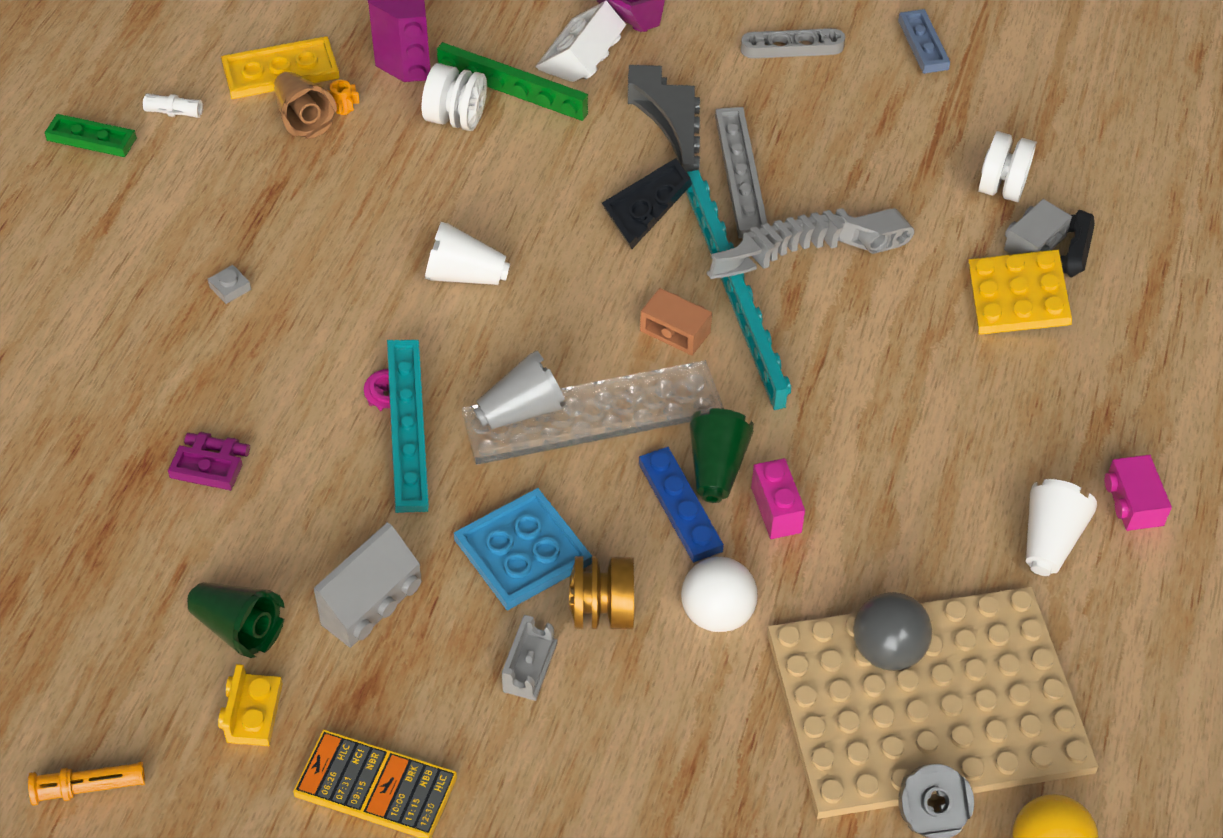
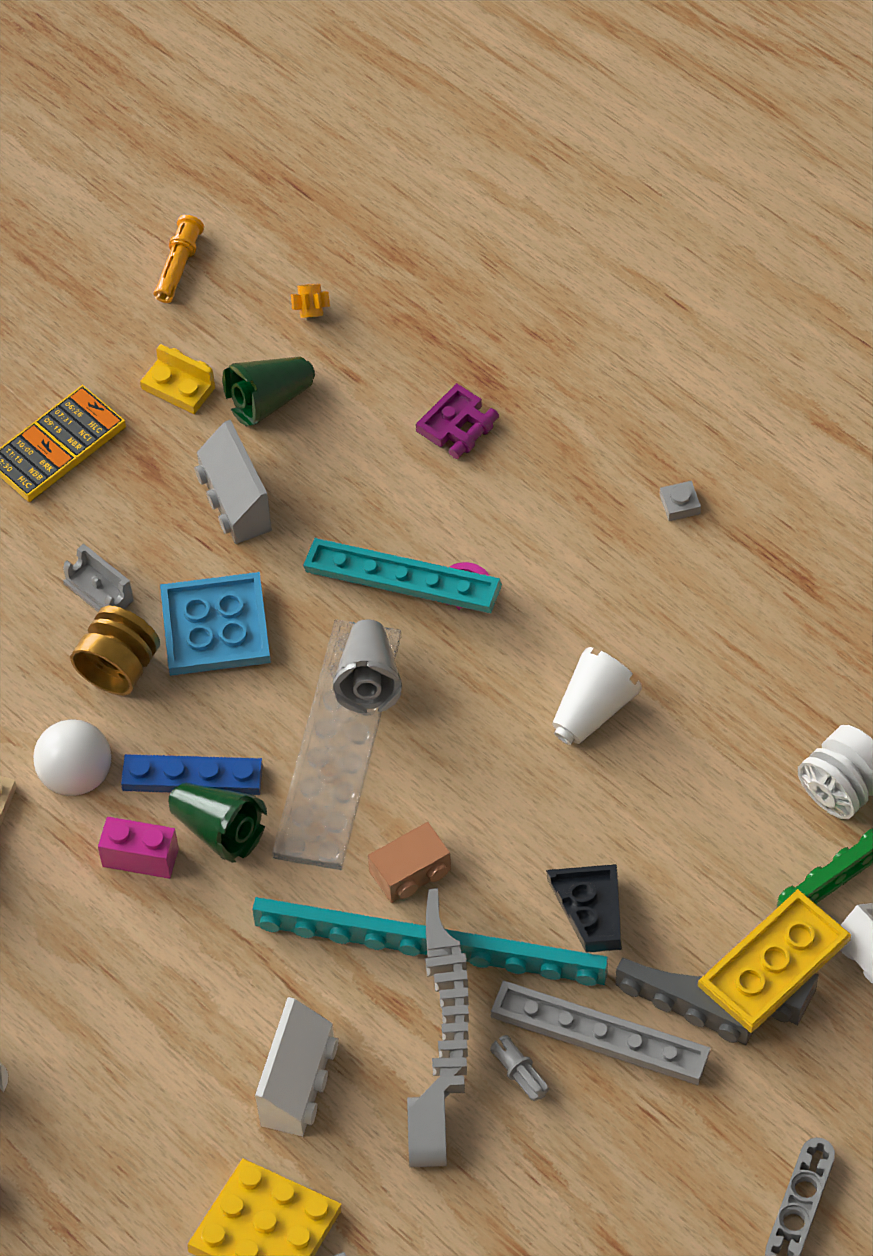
camera: 120 degrees right, 5 degrees up
(106, 628) = (310, 300): none -> light orange gear
(635, 84) = (774, 960): none -> yellow tile
(799, 201) = (520, 1068): none -> light grey axle
(896, 318) = (295, 1069): none -> white slope

